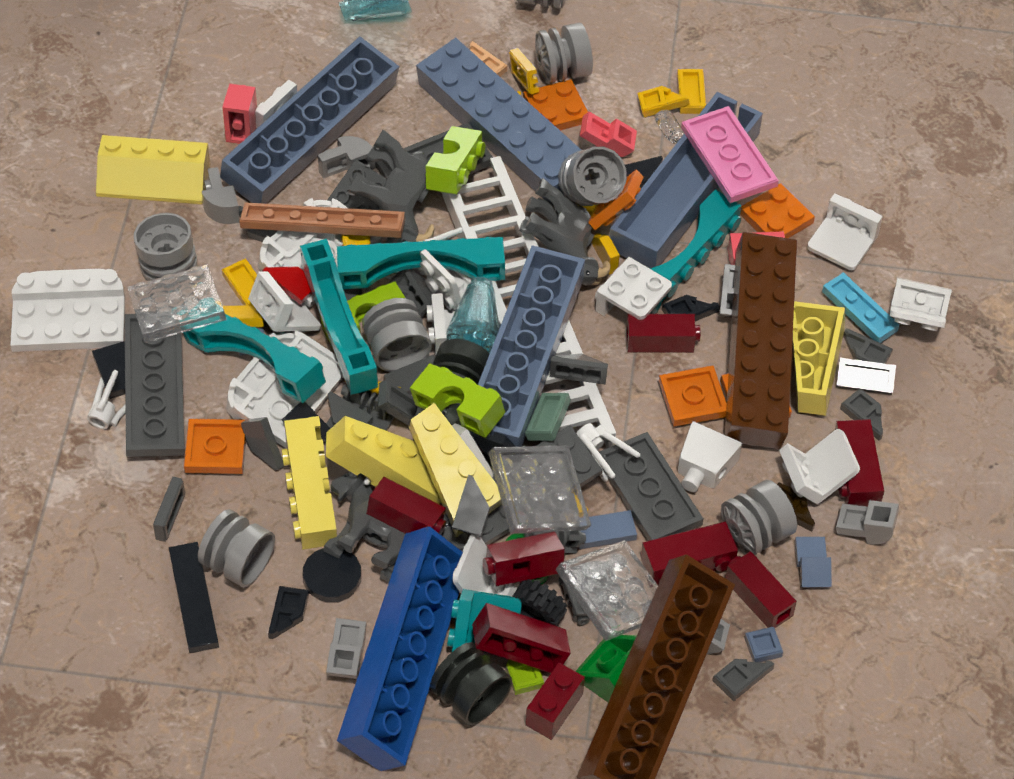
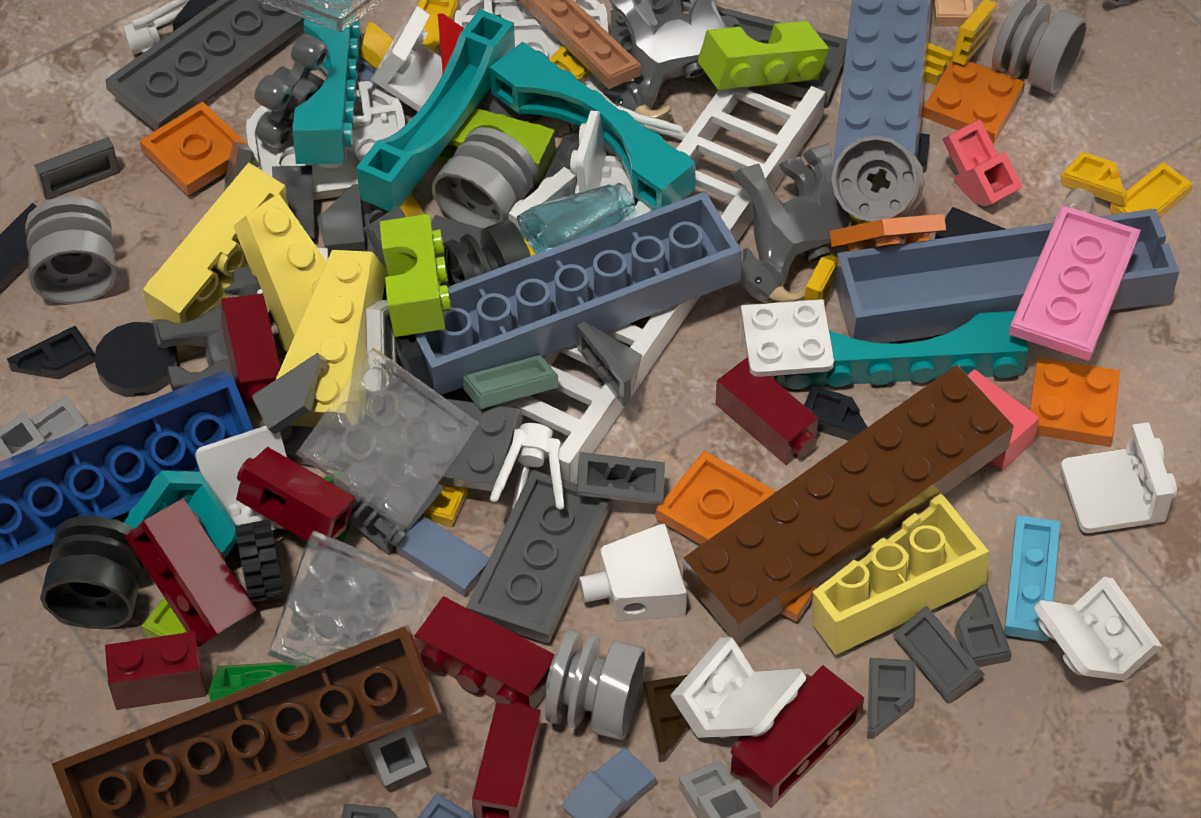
camera: 50 degrees right, 0 degrees up
(256, 367) = (289, 89): none -> dark grey gear
(646, 418) = (620, 478): none -> dark grey slope

